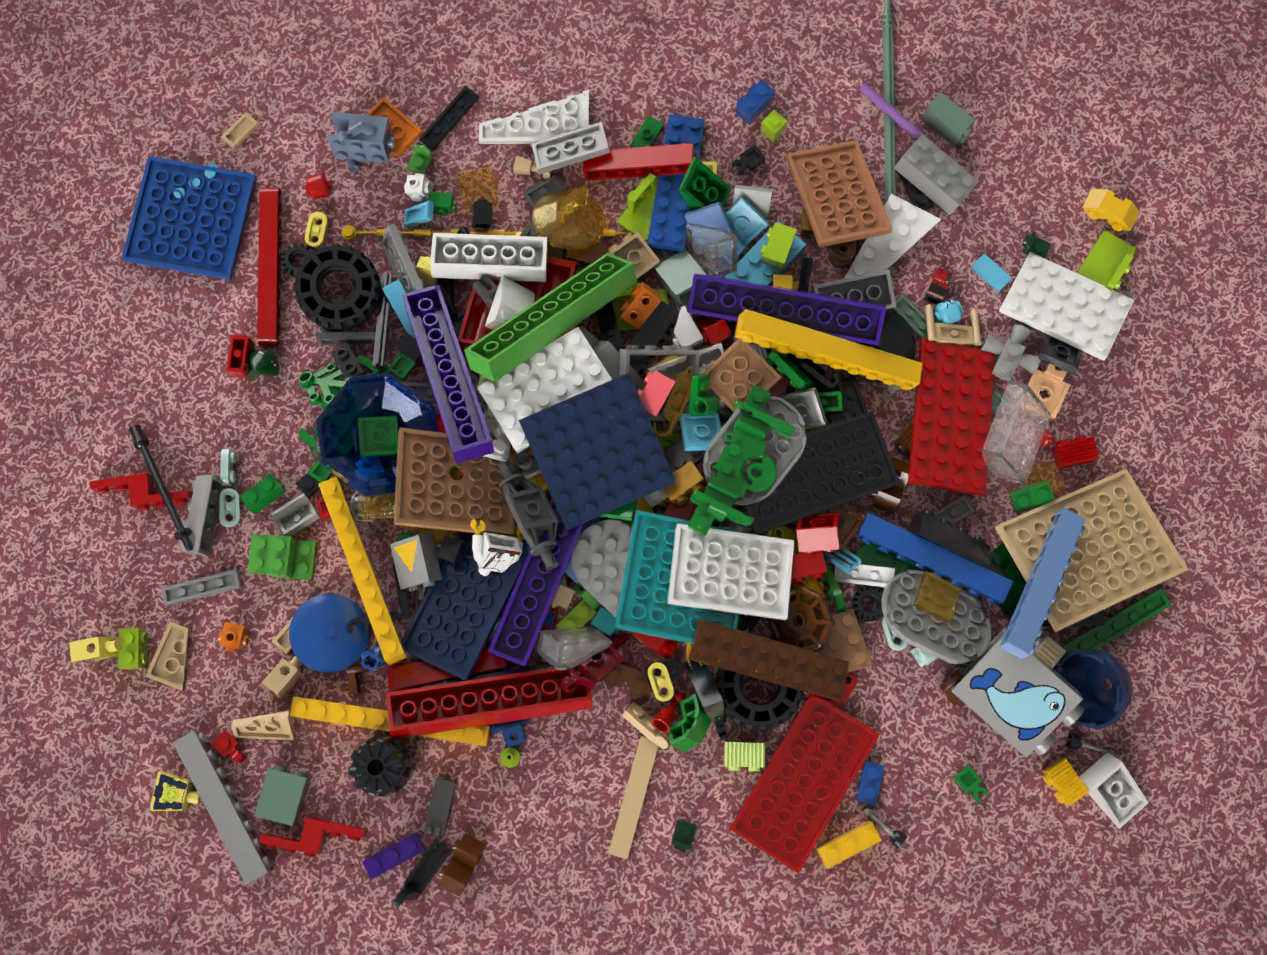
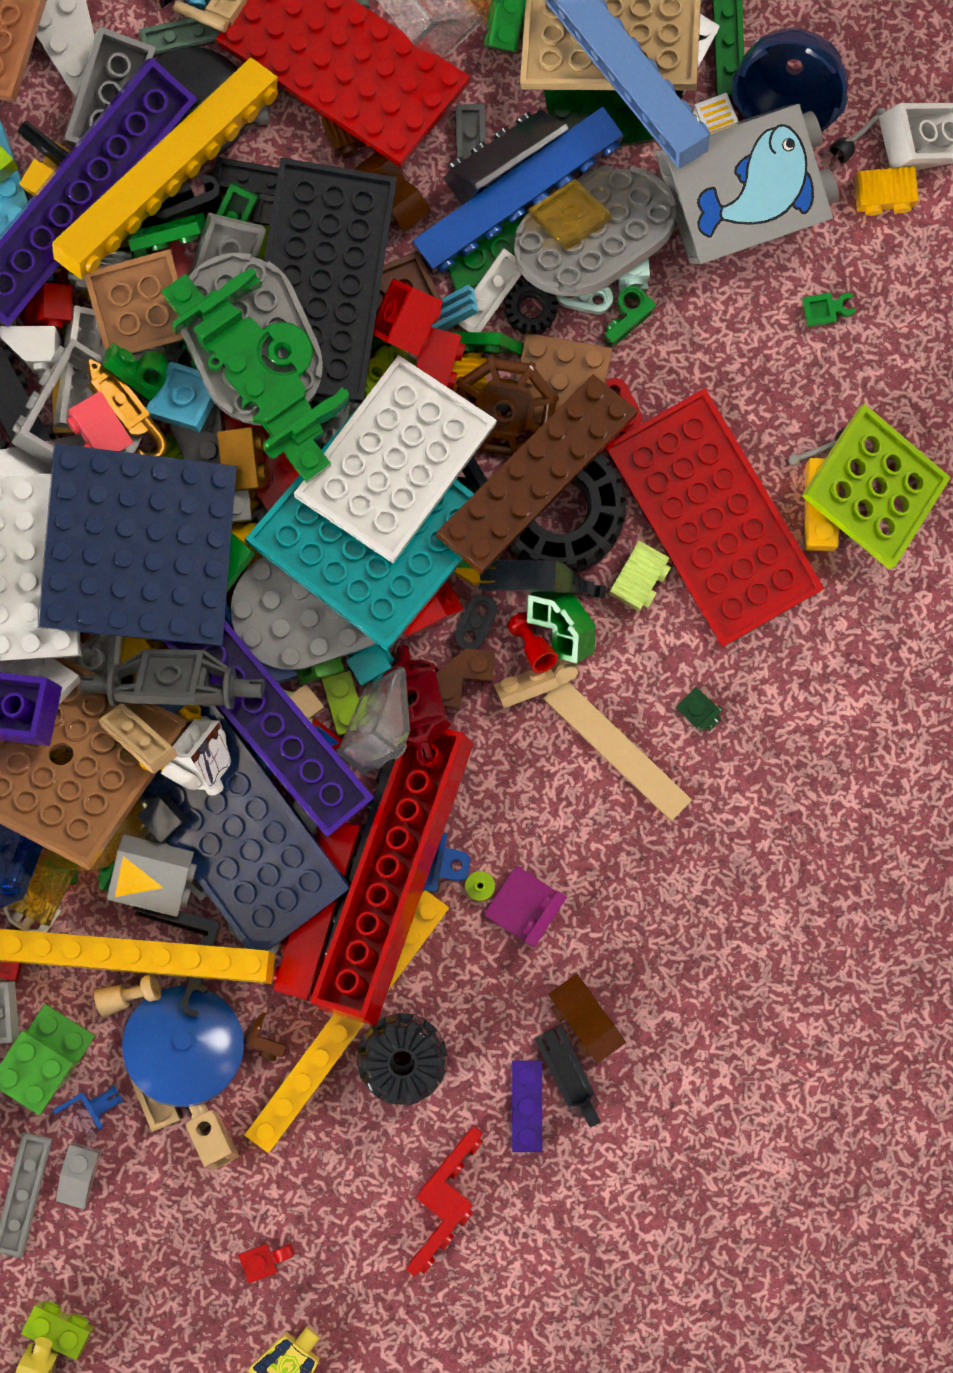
camera: 70 degrees left, 5 degrees up
(171, 656) = (97, 1282): tan wing -> none
(222, 806) = (340, 1305): light grey brick -> none
(227, 611) = (78, 1175): none -> light grey slope
(234, 637) = (106, 1180): orange brick -> none
(270, 726) = (265, 1193): tan wing -> none
(271, 602) = (95, 1106): none -> blue bracket
(282, 795) = (369, 1216): sand green brick -> none
(338, 580) = (116, 998): none -> tan piece
(372, 659) = (252, 998): blue piece -> none
(440, 807) = (496, 1012): dark grey hinge -> none
(486, 511) = (138, 738): none -> tan tile
(511, 791) = (525, 906): none -> magenta bracket
(660, 681) = (487, 633): light yellow plate -> none
(842, 257) = (39, 84): reddish brown wheel -> none
(870, 783) = (759, 435): blue plate -> none
(886, 663) = (632, 318): none -> green plate
(905, 885) = (908, 462): none -> lime piece
(946, 687) = (691, 269): reddish brown plate -> none

